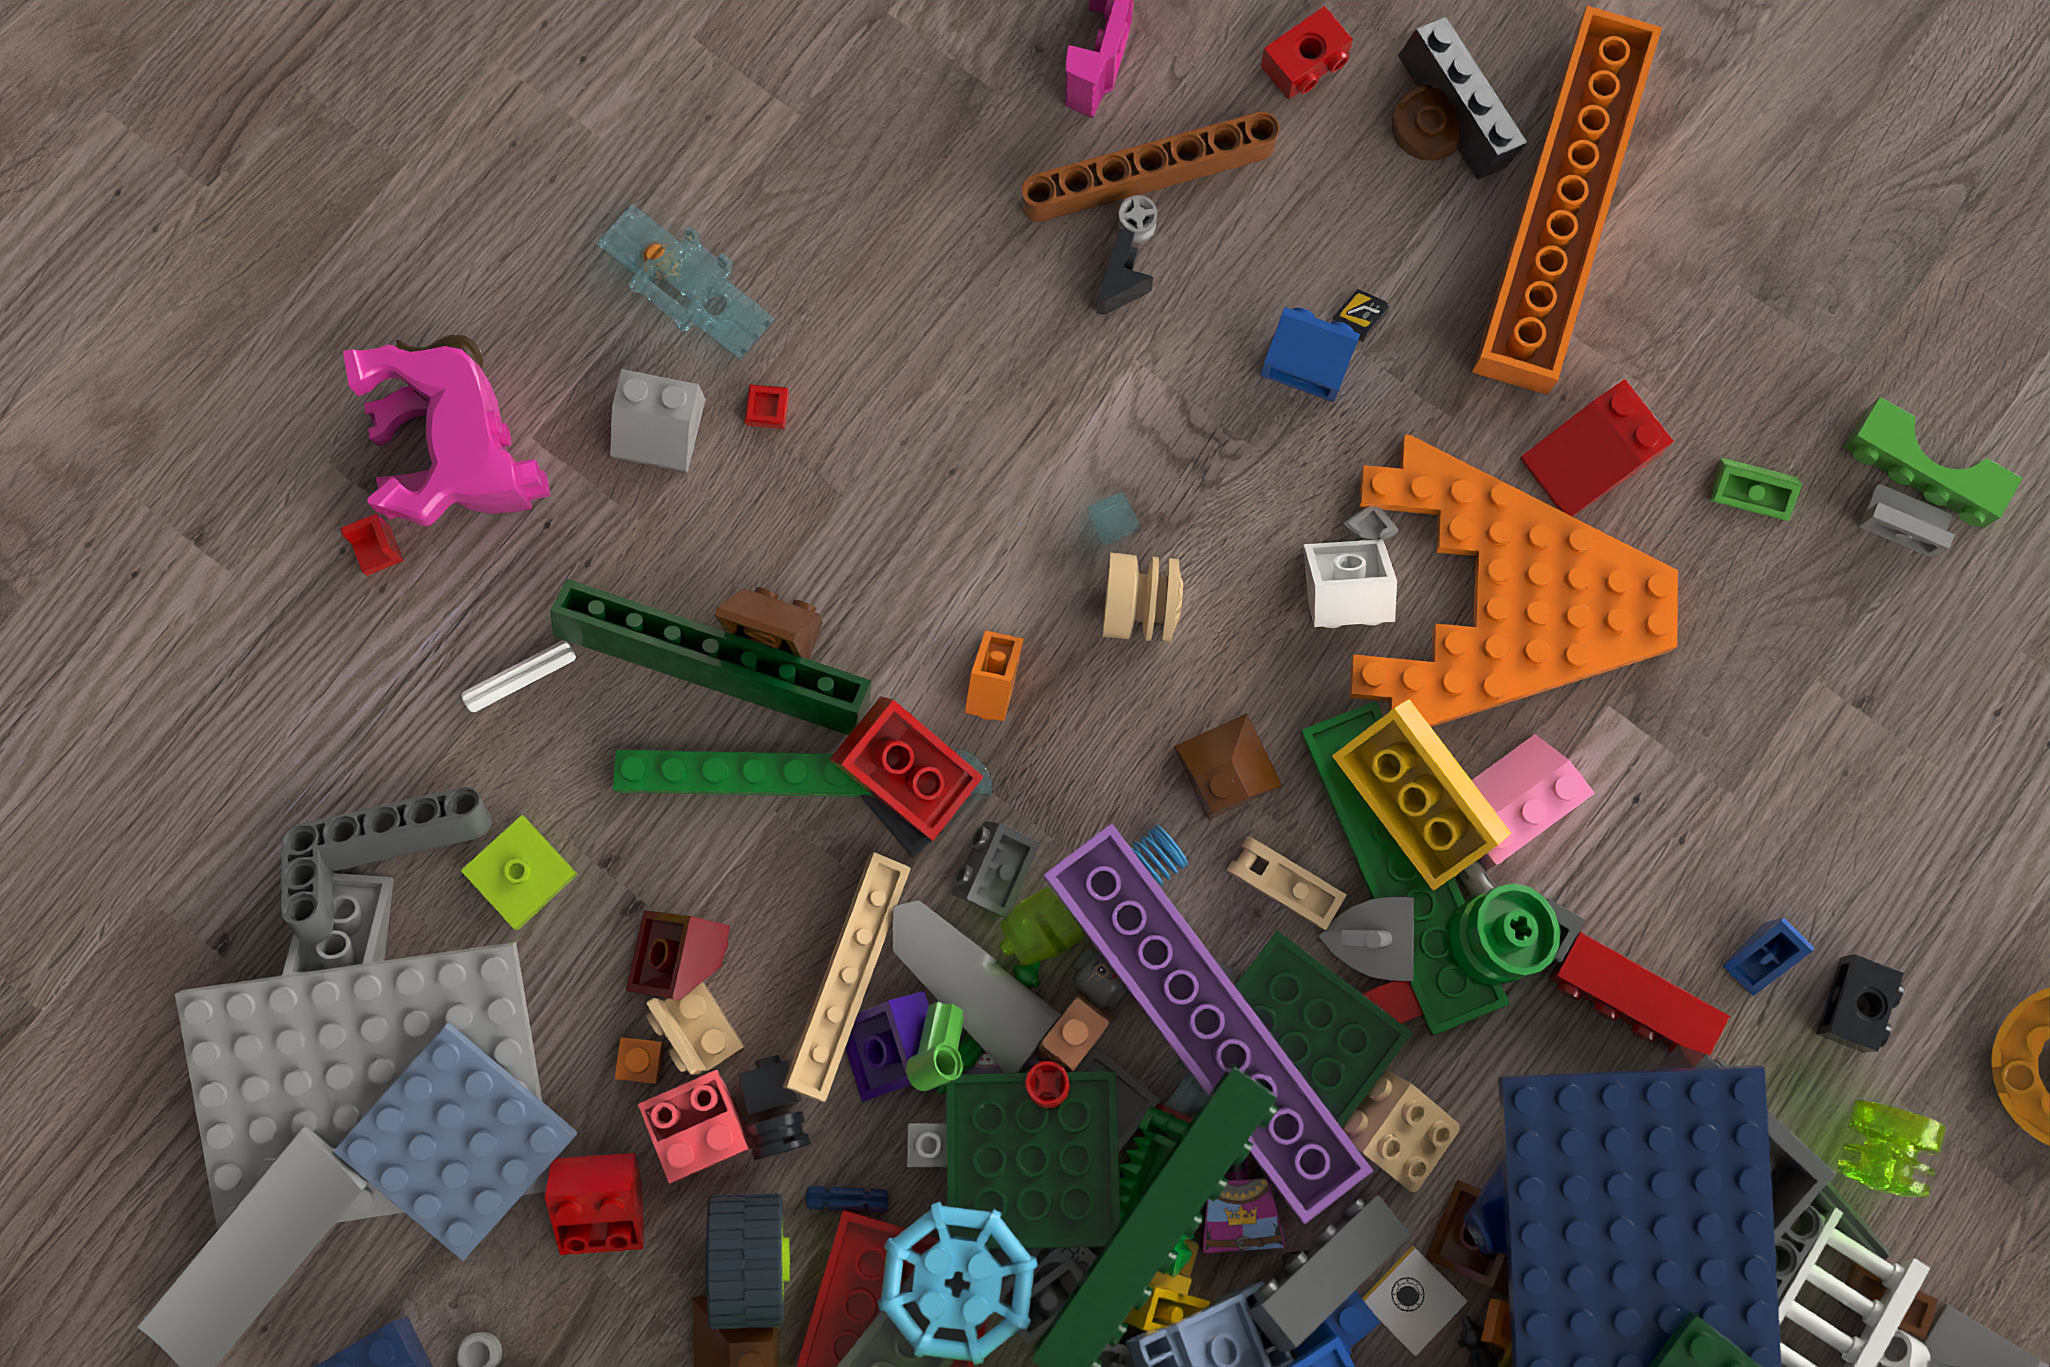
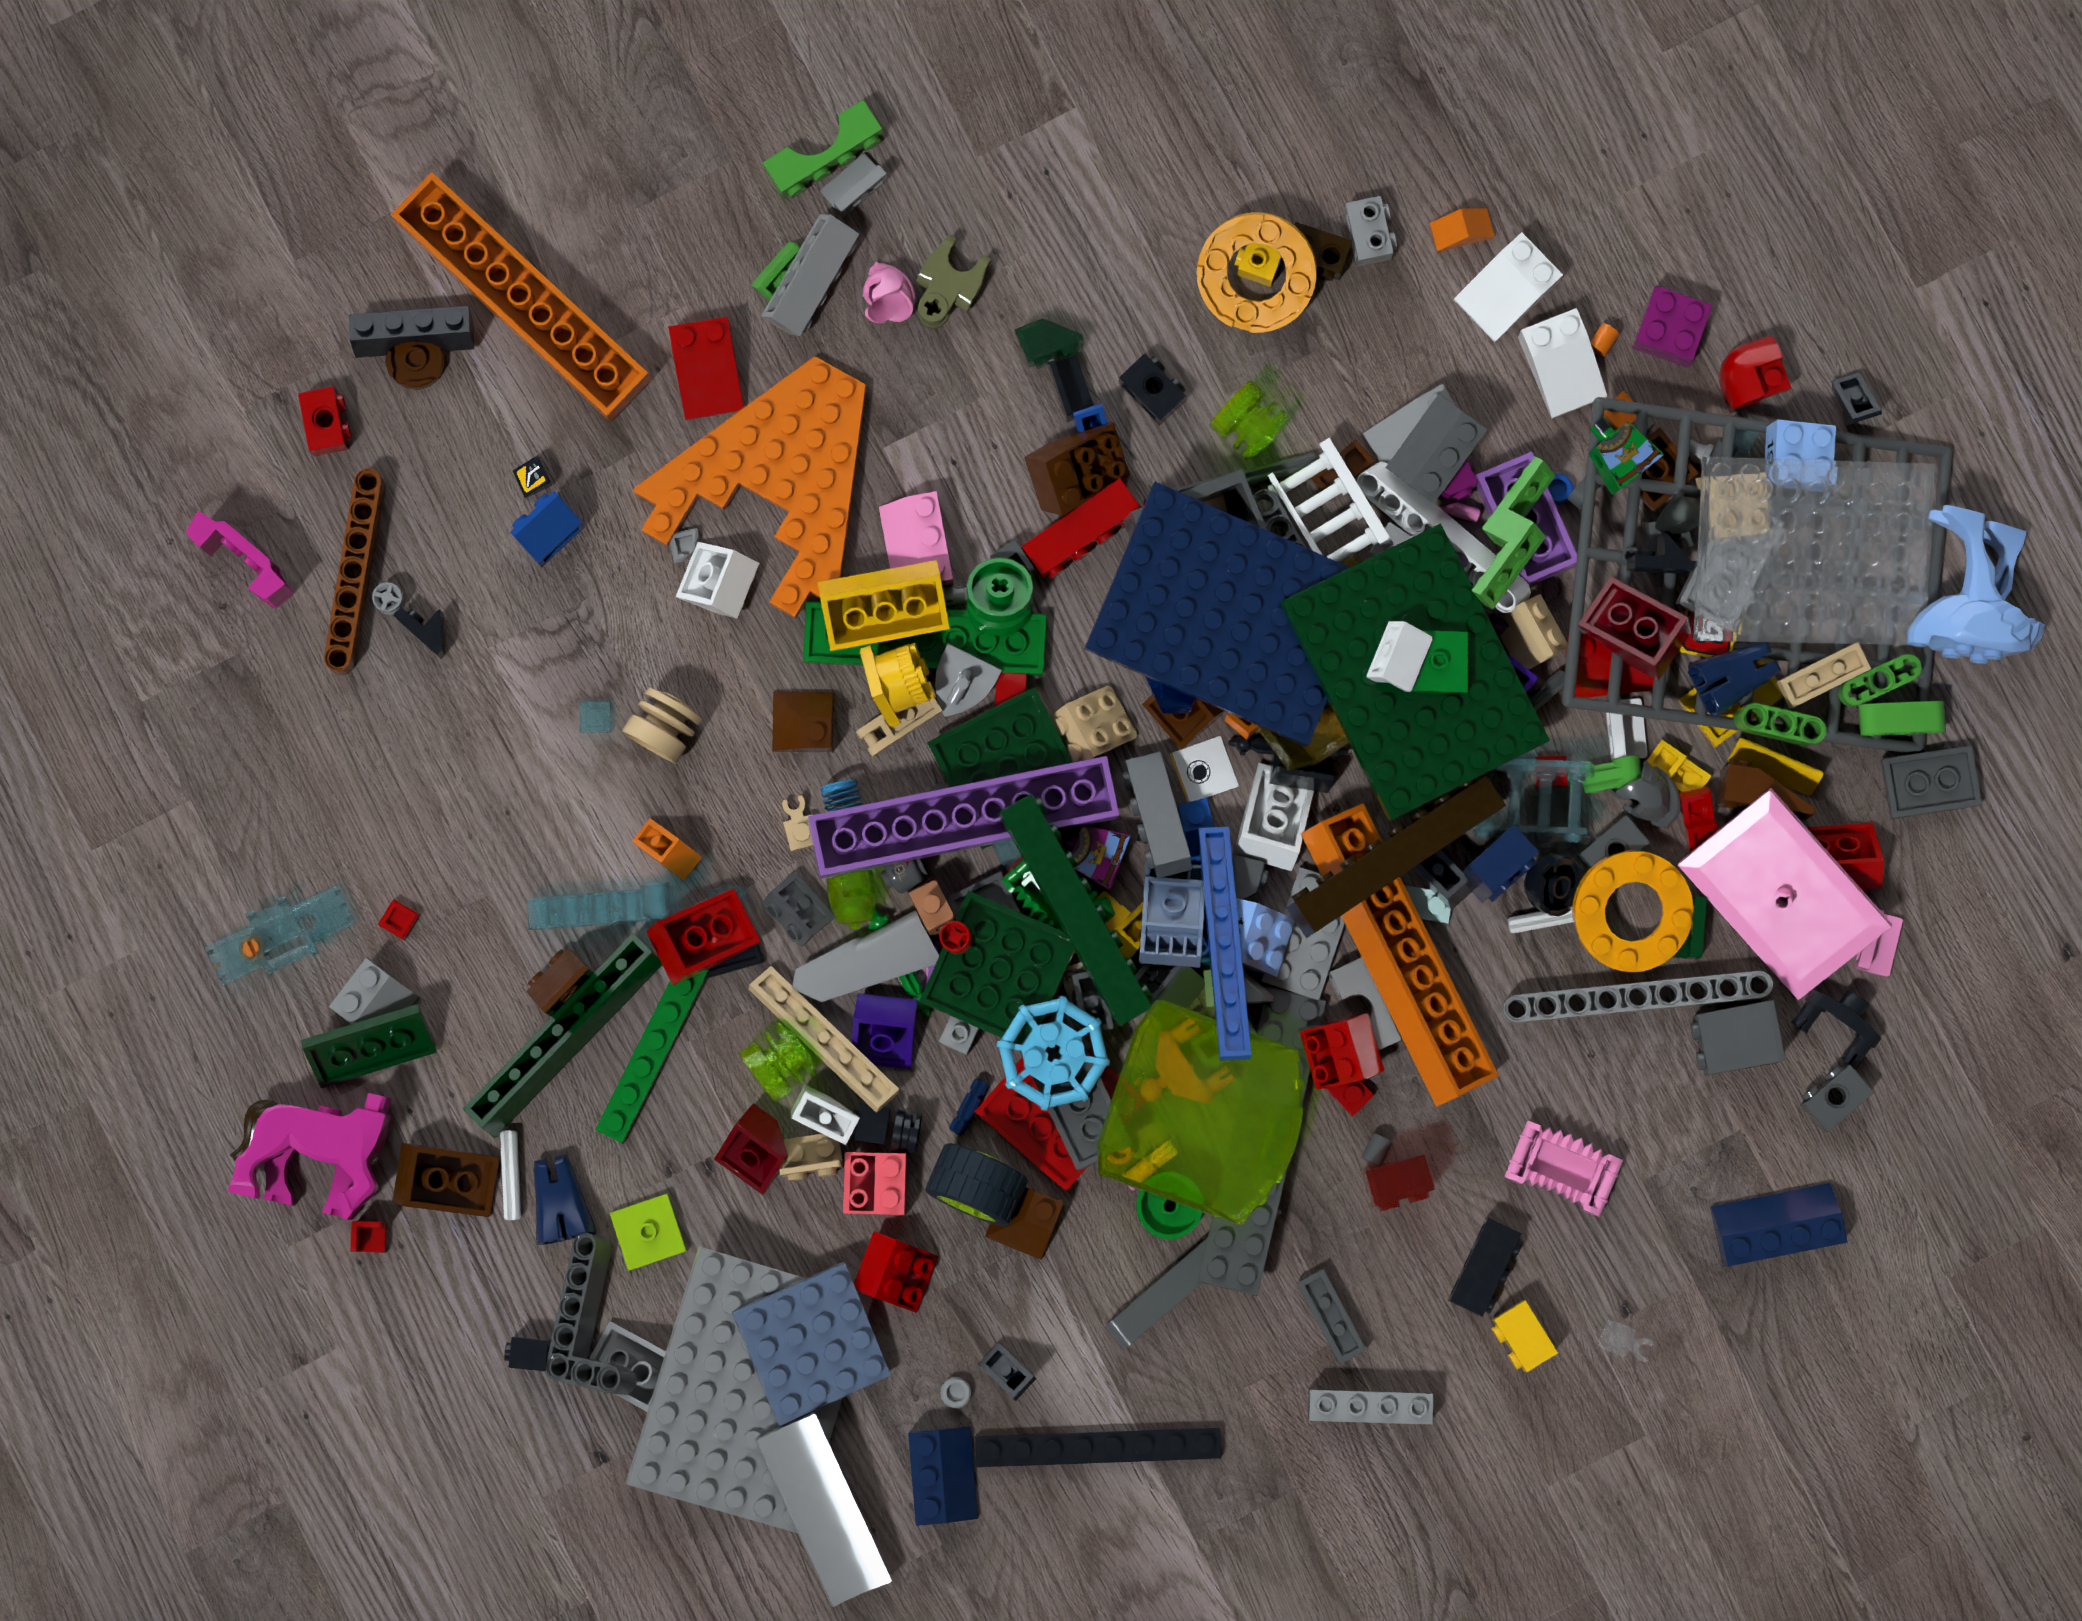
camera: 65 degrees left, 5 degrees up
(307, 795) = (527, 1353): none -> black brick
(477, 602) = (445, 1180): none -> reddish brown slope
(508, 749) = (559, 1203): none -> dark blue piece
(597, 438) = (369, 1046): none -> dark green plate
(639, 1060) = (813, 1205): orange plate -> none
(753, 1021) = (824, 1114): none -> white slope
(792, 932) = (778, 1062): none -> clear neon green wheel
(887, 633) = (650, 903): none -> clear light blue beam
(938, 1050) = (904, 1000): bright green piece -> none
(1094, 819) = (797, 828): none -> tan plate
(1336, 855) = (897, 680): none -> yellow piece
(1713, 954) = (1076, 468): none -> reddish brown slope
(1775, 518) = (810, 275): none -> light grey brick
(1799, 622) = (888, 294): none -> bright pink helmet
(1808, 896) = (1070, 385): none -> black panel
(1849, 841) = (1046, 340): none -> clear green slope
(1851, 689) = (948, 286): none -> olive piece

